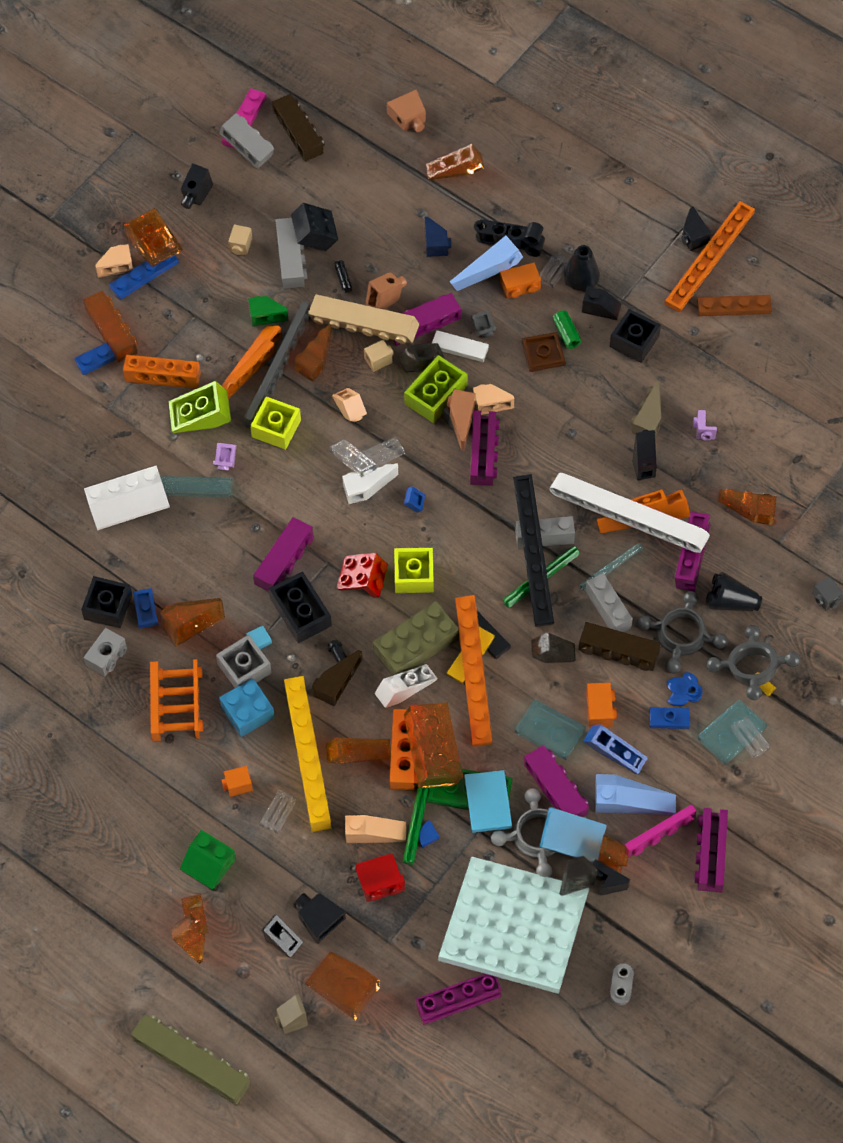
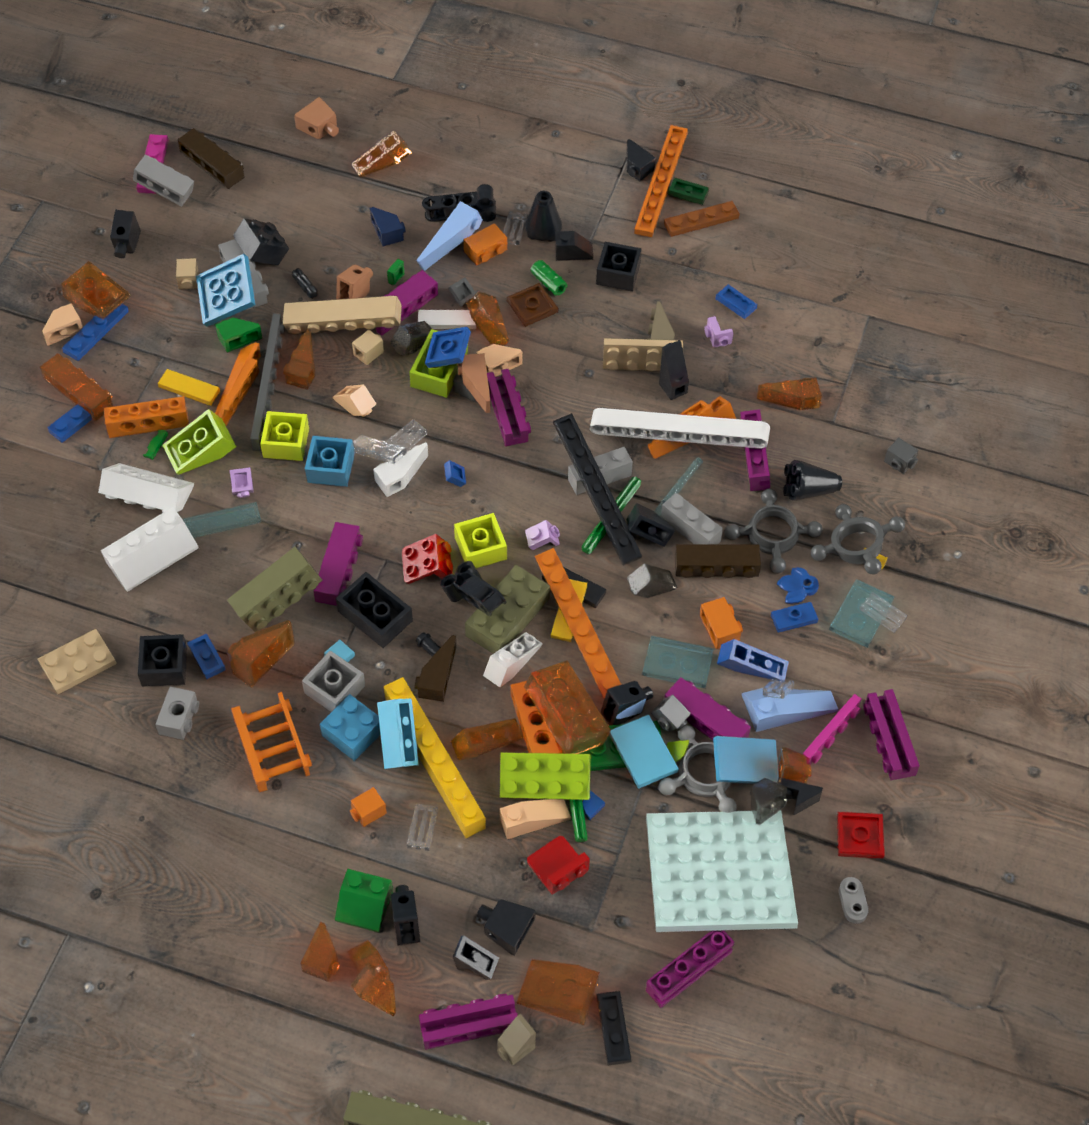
camera: 20 degrees left, 5 degrees down
(37, 581) = (77, 661): none -> tan plate
(140, 438) = (144, 487): none -> white slope
(157, 895) = (321, 955): none -> clear orange slope
(163, 398) = (156, 444): none -> green piece
(208, 351) = (189, 387): none -> yellow tile
(219, 566) = (275, 590): none -> olive brick
(236, 883) = (405, 911): none -> black torso
(257, 986) = (467, 1021): none -> magenta brick
(267, 267) = (225, 290): none -> dark azure plate
(281, 725) = (398, 733): none -> medium azure brick
(307, 457) = (329, 461): none -> dark azure brick
(377, 1029) = (613, 1028): none -> black tile
(388, 607) = (468, 585): none -> black piece
(394, 798) = (545, 776): none -> lime plate
(428, 287) = (395, 272): none -> green tile
(444, 379) = (447, 347): none -> blue plate
(472, 578) = (542, 534): none -> lavender bracket
(488, 753) = (625, 702): none -> black torso
(495, 353) = (488, 318): none -> clear orange slope
(518, 808) = (678, 749): none -> lime piece
(523, 775) = (671, 714): none -> brick
(569, 596) = (649, 525): none -> black slope
(617, 428) = (633, 354): none -> tan plate
(627, 778) = (773, 688): none -> clear tile
(650, 930) = (860, 835): none -> red tile
(731, 274) = (688, 191): none -> dark green plate
(734, 399) = (736, 301): none -> blue plate

